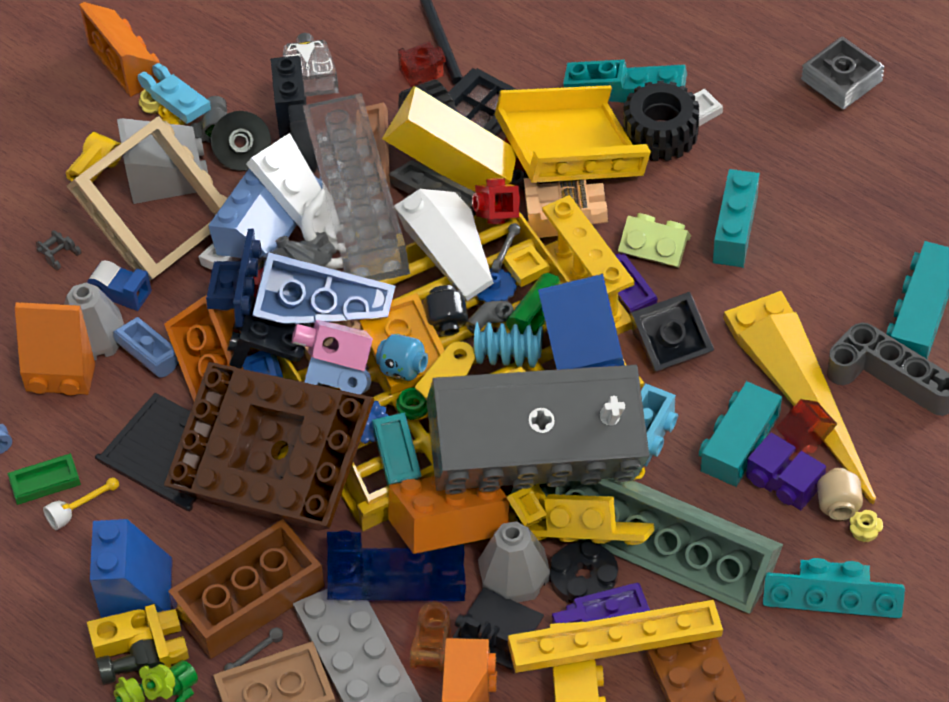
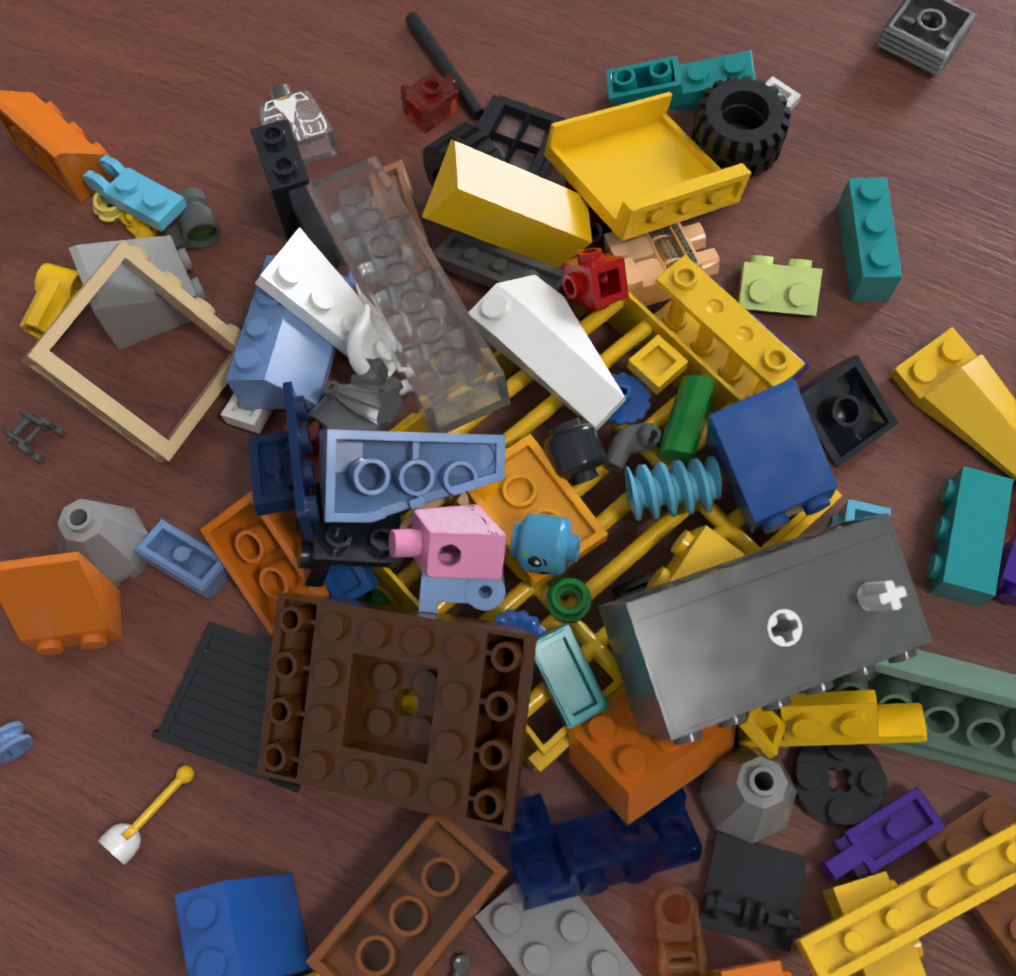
camera: 15 degrees left, 15 degrees up
(44, 479) = (89, 786): green tile -> none
(121, 284) = (127, 473): blue leg -> none
(242, 125) = (254, 237): pearl dark grey dish -> none
(448, 365) = (607, 553): yellow piece -> none
(513, 229) = (623, 314): dark grey hinge -> none

